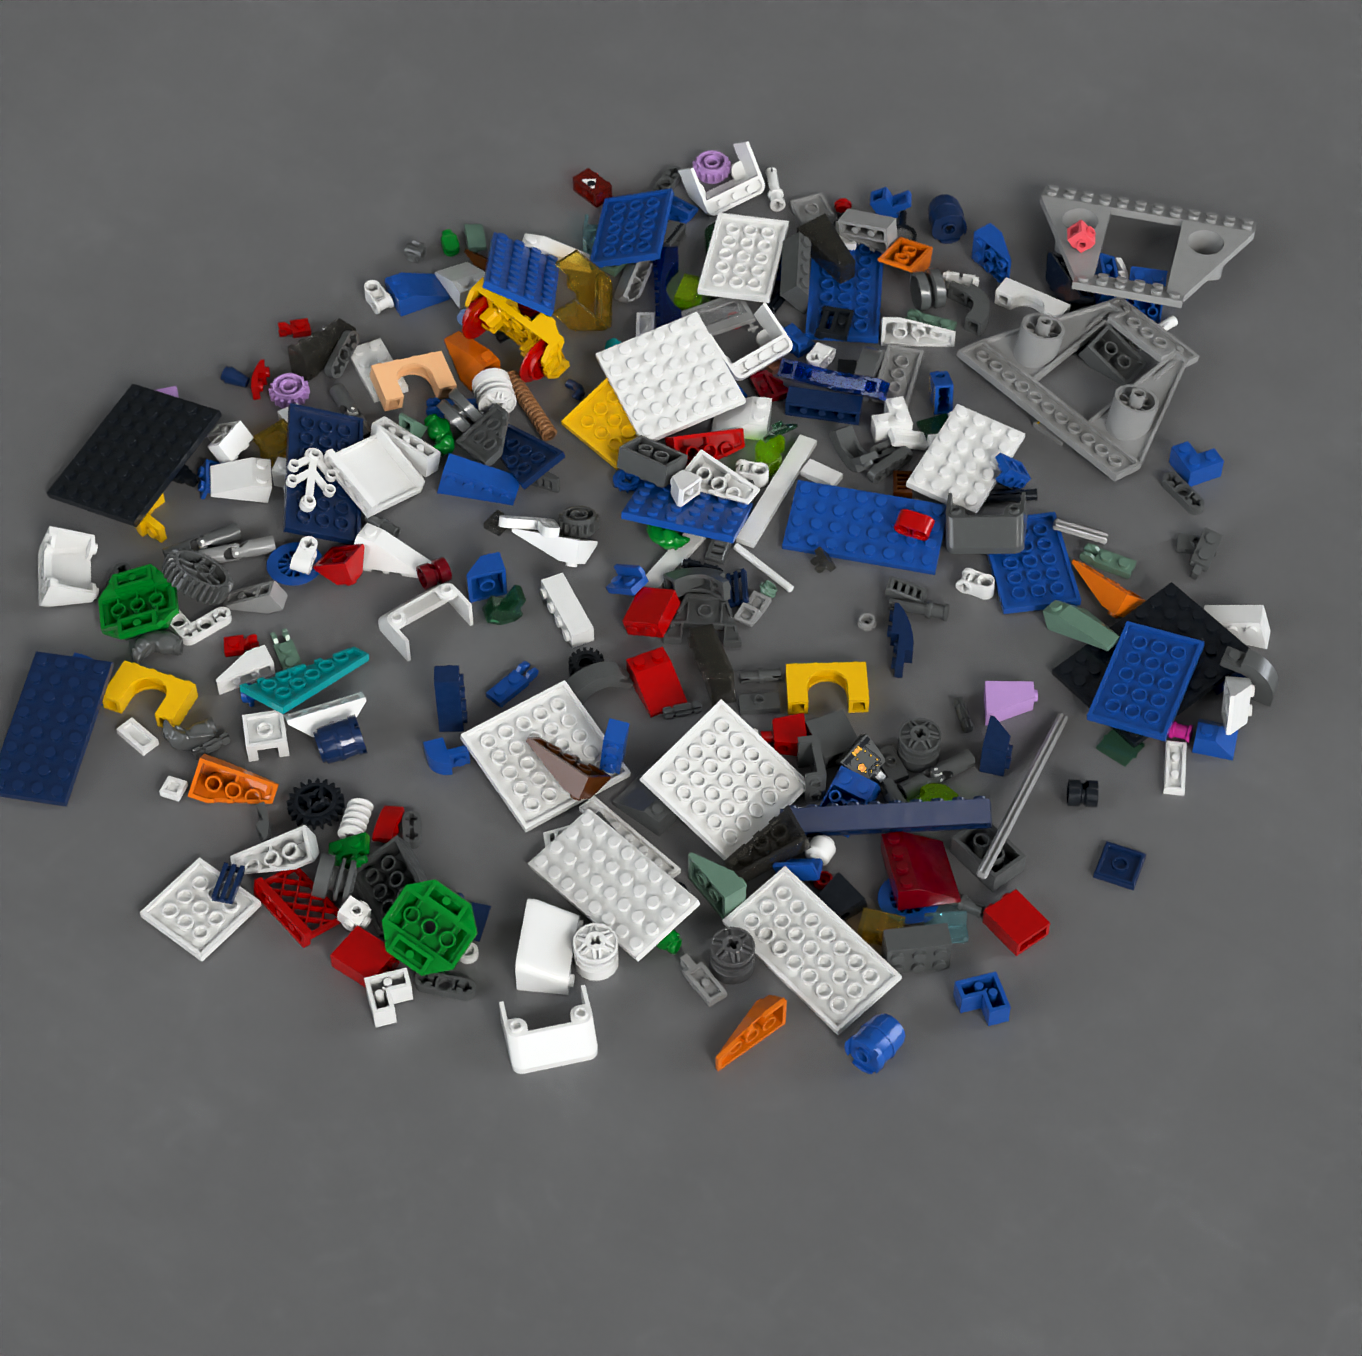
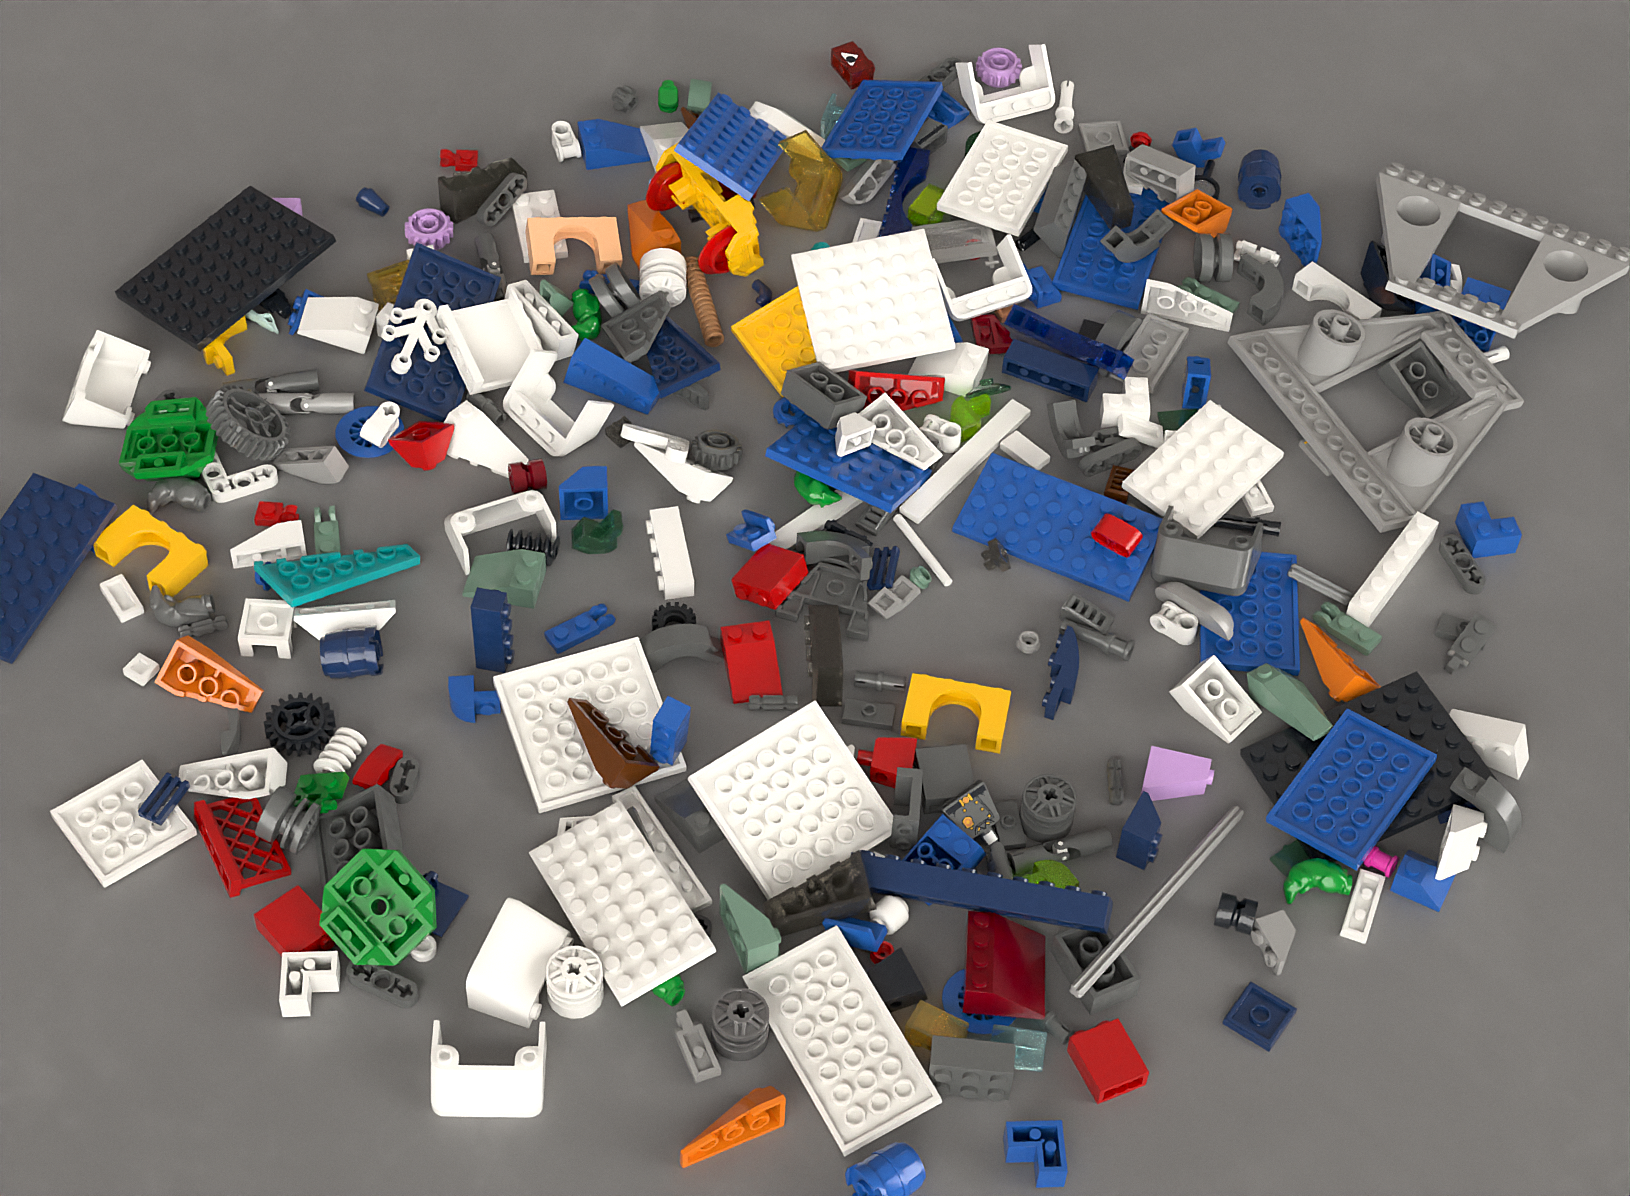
camera: 10 degrees right, 0 degrees up
(175, 491) = (262, 320): none -> light aqua hand
(229, 440) = (337, 273): white brick -> none
(259, 379) = (399, 209): red slope -> none
(354, 913) = (300, 870): white brick -> none
(418, 518) = (532, 409): none -> white windscreen
(441, 650) = (513, 572): none -> sand green slope
(456, 628) = (528, 543): none -> black piece
(821, 355) = (1064, 311): white piece -> none
(840, 325) = (1095, 280): black plate -> none
(867, 287) = (1140, 242): none -> dark grey arch
(1001, 570) = (1206, 610): none -> light grey brick
(1013, 472) = (1256, 495): blue bracket -> none
(1023, 635) = (1215, 699): none -> white slope
(1081, 236) = (1412, 229): coral brick -> none
(1116, 805) = (1274, 937): none -> light grey slope
(1131, 507) = (1392, 569): none -> white brick
(1135, 750) = (1316, 873): none -> green animal

